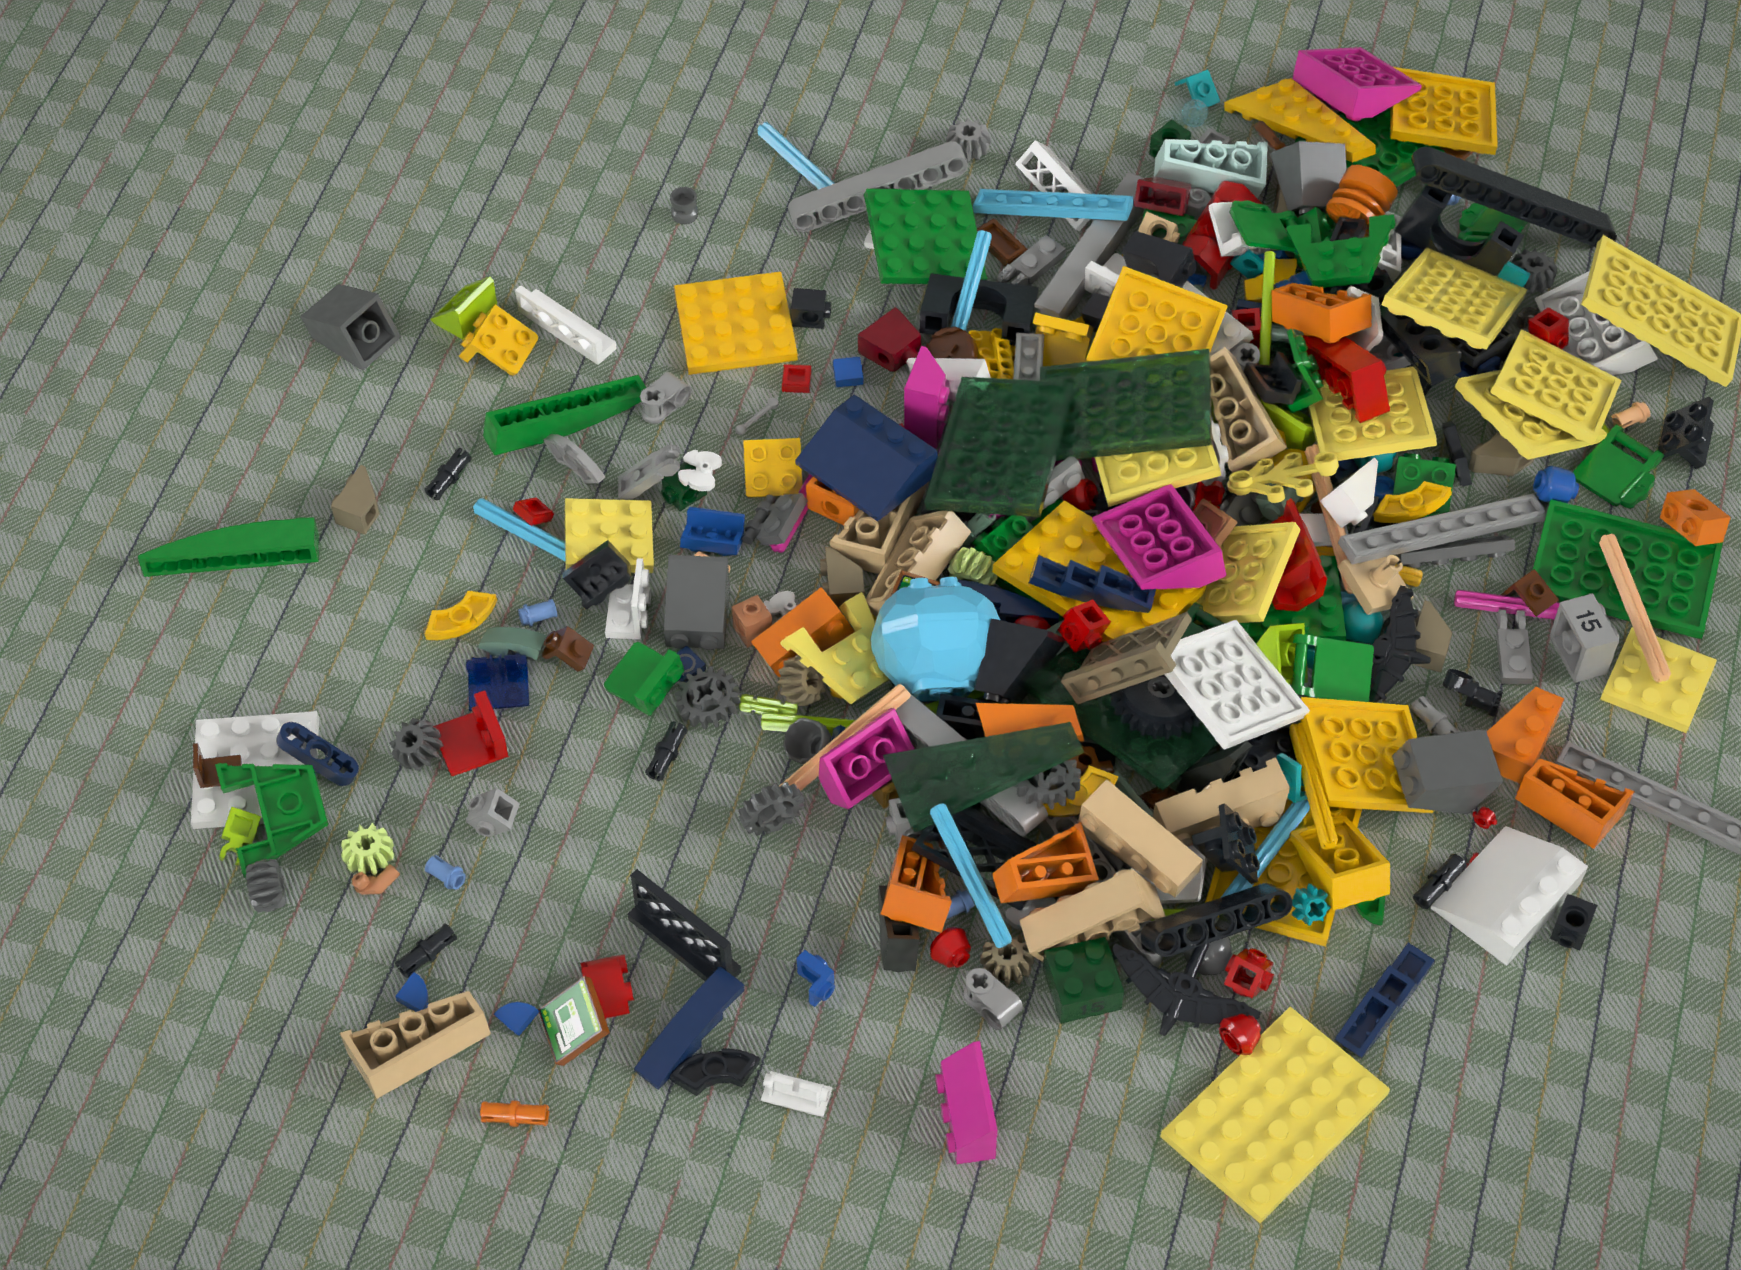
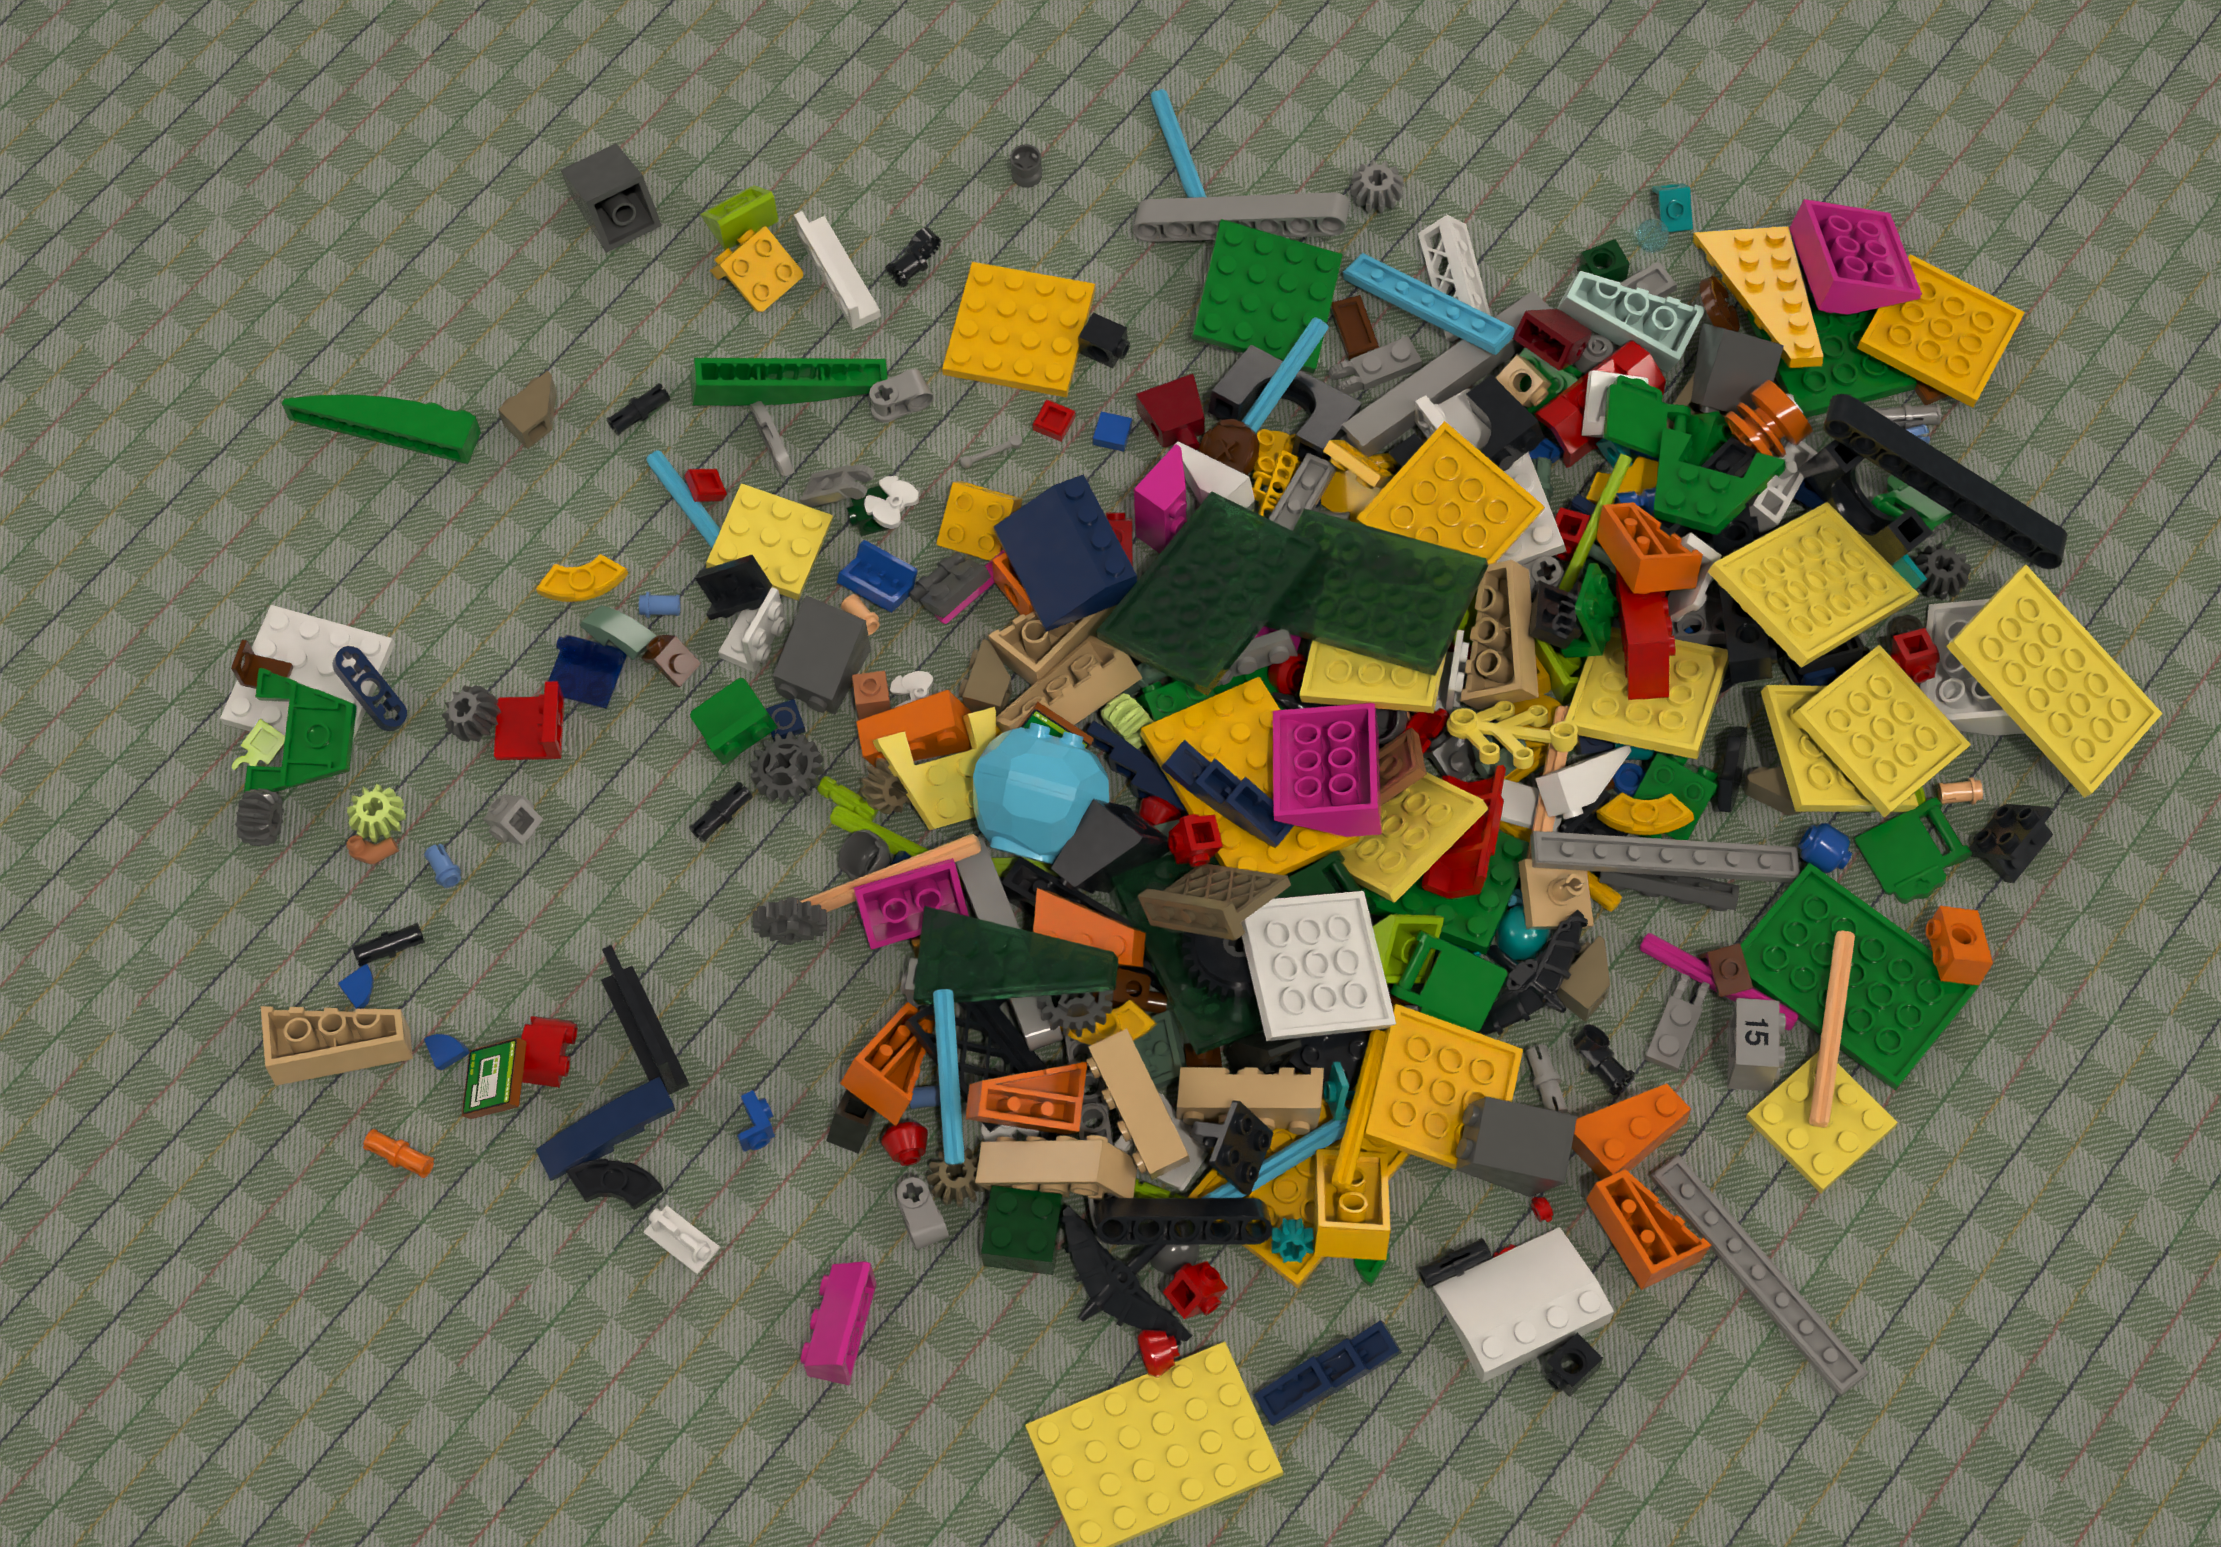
camera: 25 degrees right, 10 degrees up
(626, 296) = (914, 260): none -> black connector

